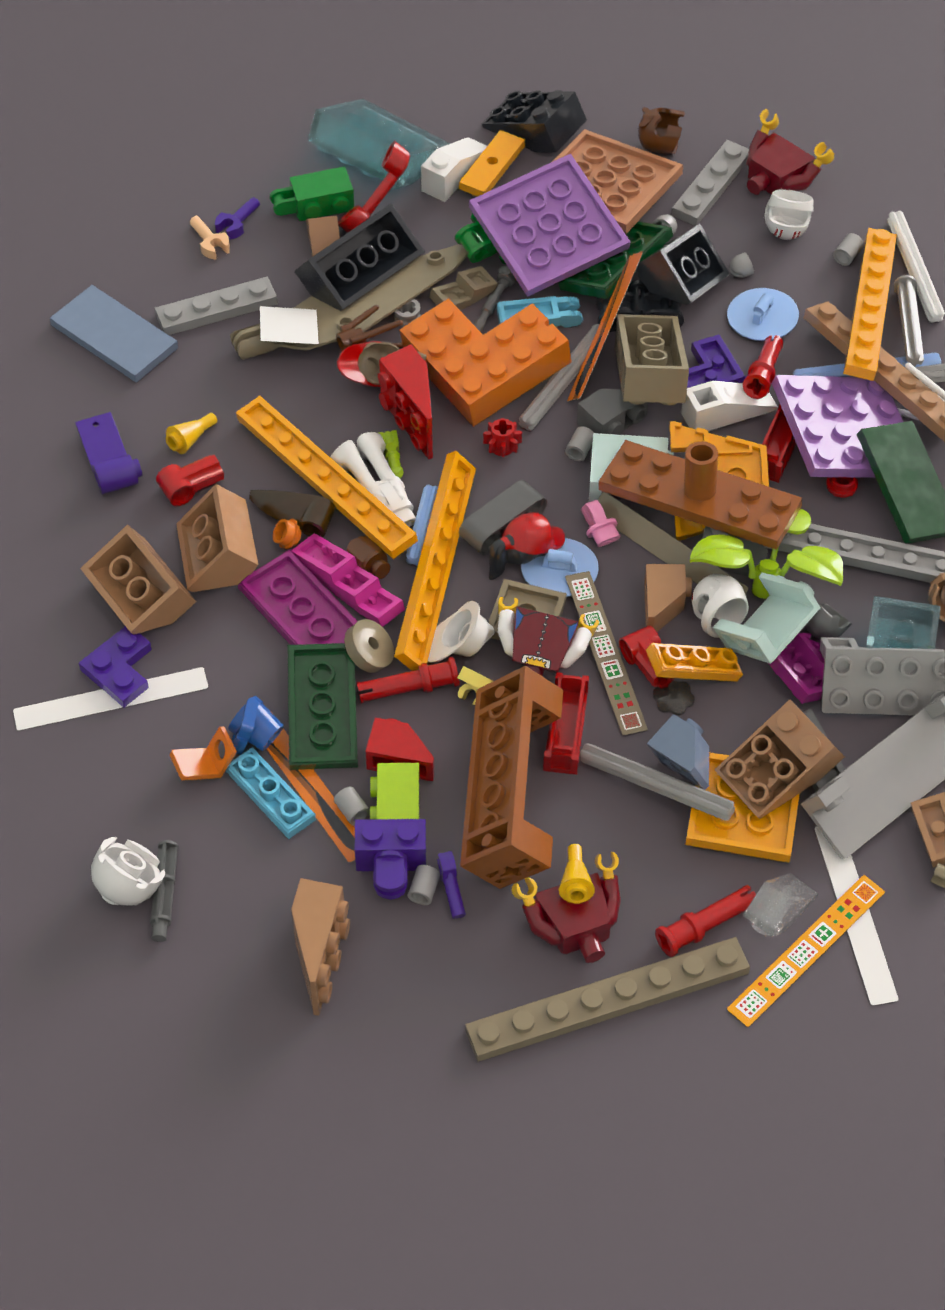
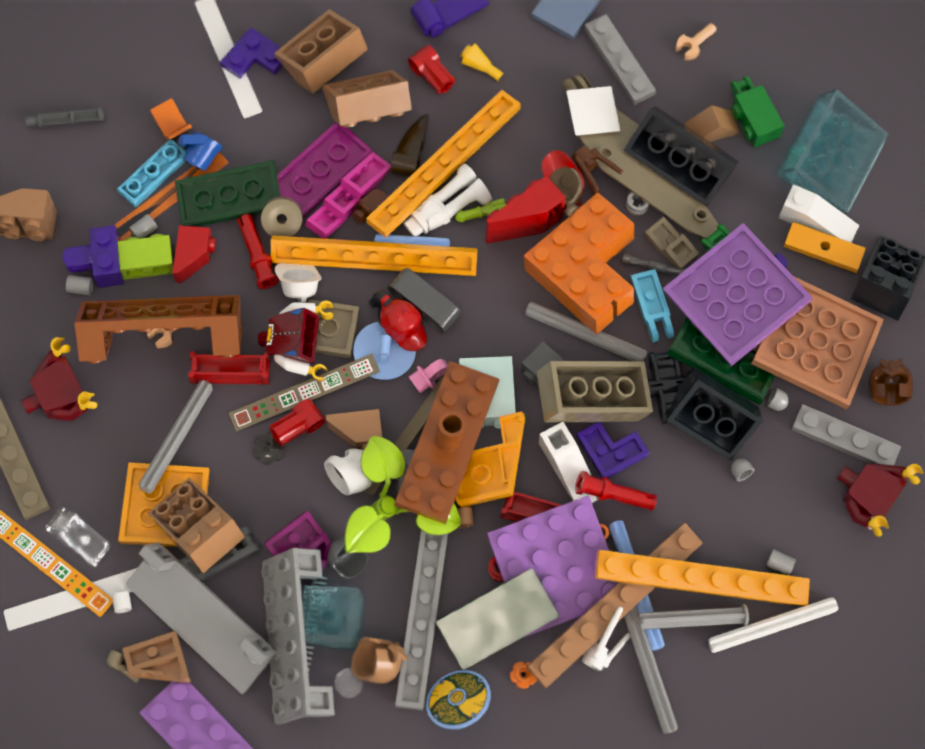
camera: 80 degrees right, 15 degrees up
(125, 872) = (67, 87): white cylinder -> none
(233, 222) = (720, 57): dark purple bar -> none
(287, 533) = (386, 146): orange plate -> none
(395, 163) = (779, 160): red piece -> none
(448, 875) = (89, 294): dark purple bar -> none
(474, 681) = (259, 299): light yellow tile -> none
(502, 437) = (513, 288): red gear -> none
(576, 882) = (70, 380): yellow cone -> none
(580, 444) = (514, 350): light grey hinge -> none
(604, 327) = (634, 354): orange sticker -> none
(683, 750) = (199, 452): sand blue slope -> none
(693, 926) = (55, 474): red pin -> none
(694, 662) = (281, 440): light orange tile -> none
(762, 313) = (689, 492): light blue shield -> none
(774, 622) = (323, 507): light aqua panel -> none
(788, 213) = (806, 502): white helmet -> none
(869, 863) = (121, 602): none -> white piece

